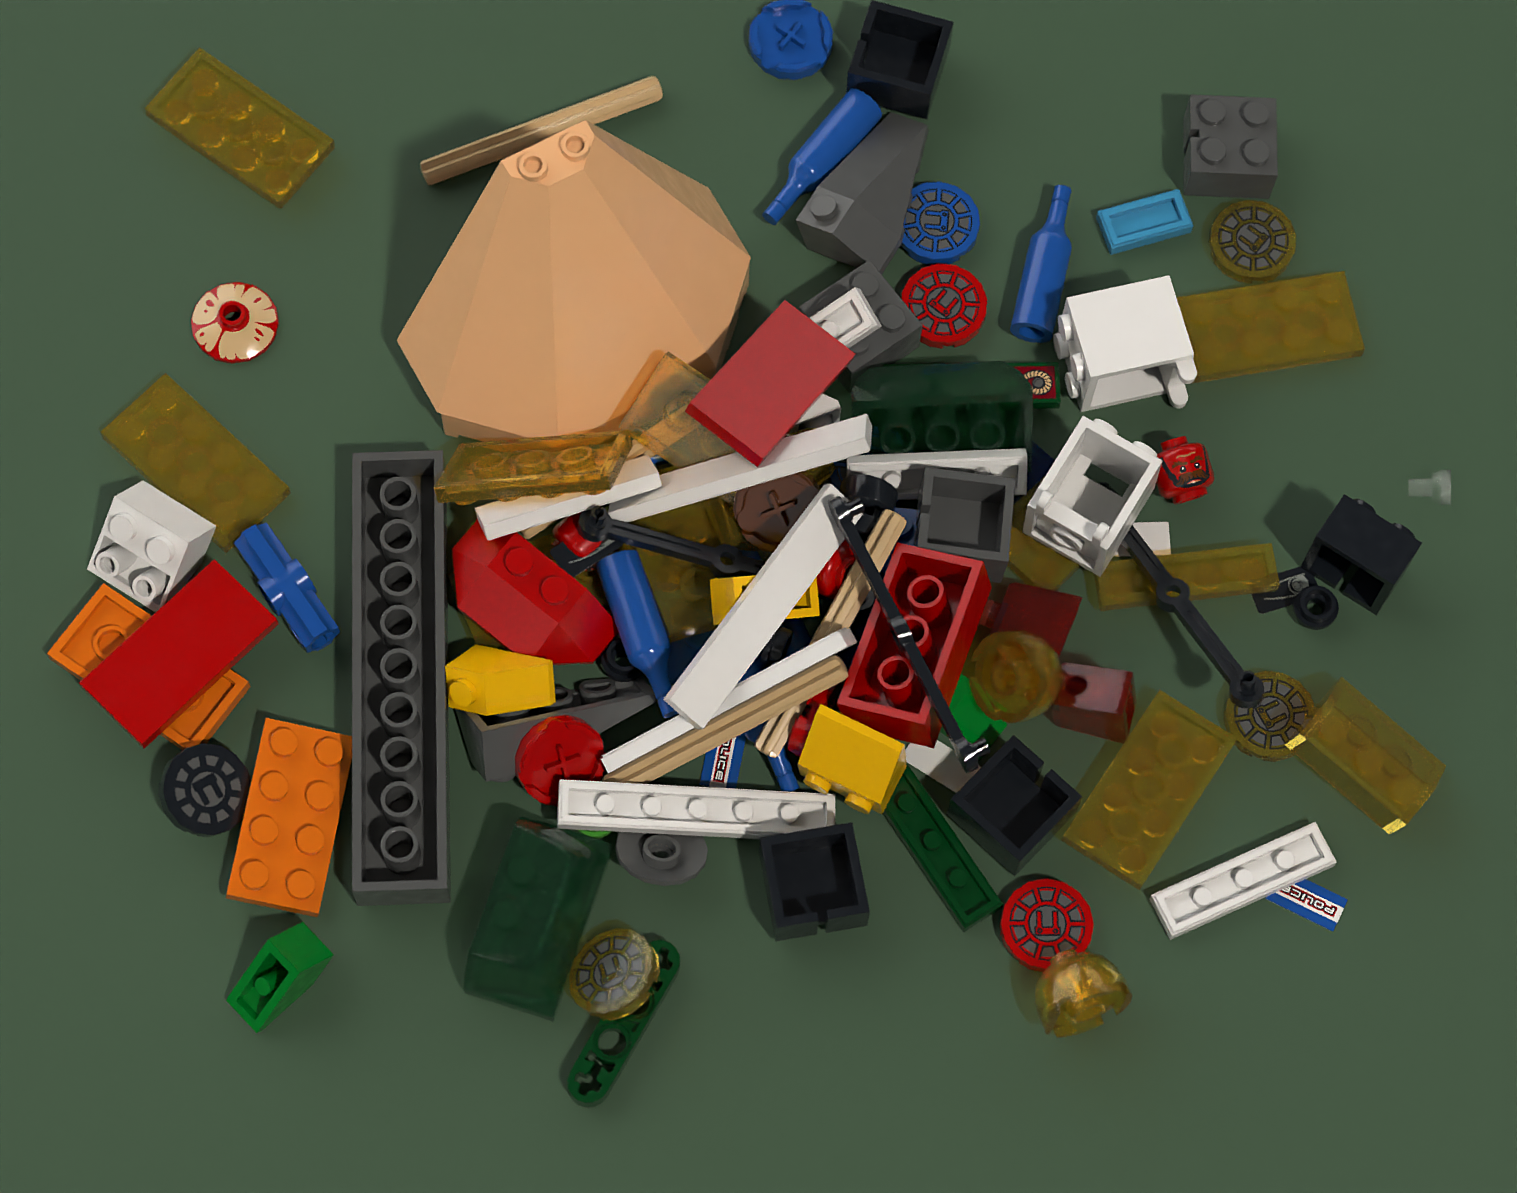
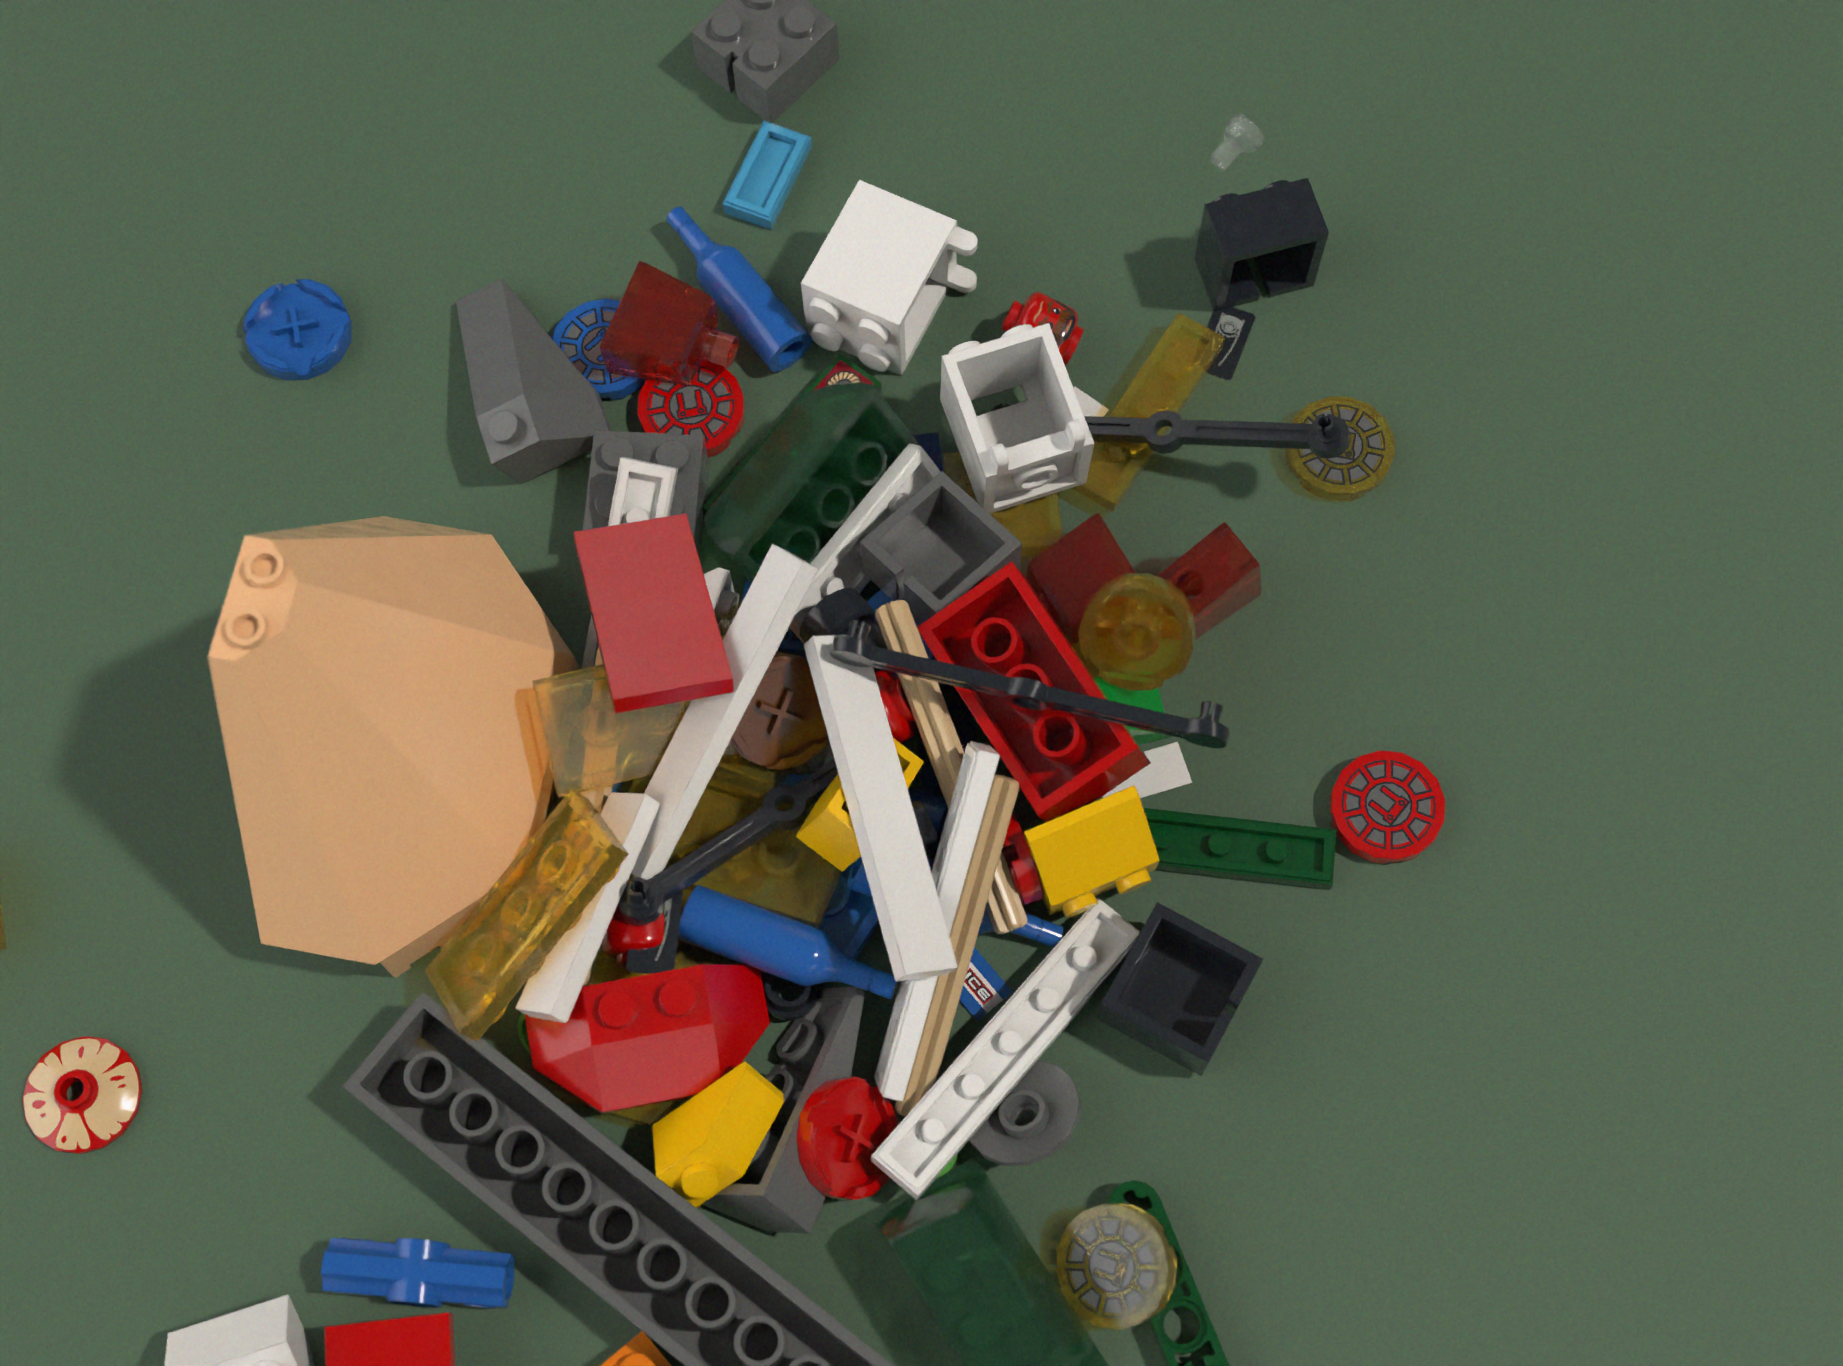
camera: 45 degrees left, 0 degrees up
(195, 460) = (193, 1259): clear yellow plate -> none
(529, 133) = (167, 631): tan axle -> none
(826, 149) = (441, 385): blue piece -> none
(902, 57) = (416, 247): black piece -> none
(974, 246) = (664, 330): none -> clear red torso
(1008, 810) = (1270, 741): black piece -> none
(1078, 991) = (1485, 827): clear yellow cylinder -> none
(1149, 789) = (1329, 608): clear yellow plate -> none
(1242, 880) = (1479, 599): white tile -> none
(1252, 241) = (870, 102): tile -> none
(1271, 326) = (971, 141): clear yellow plate -> none
(1311, 903) = (1538, 558): sticker -> none
(1320, 596) = (1271, 314): black plate -> none
(1367, 757) = (1454, 397): clear yellow slope -> none

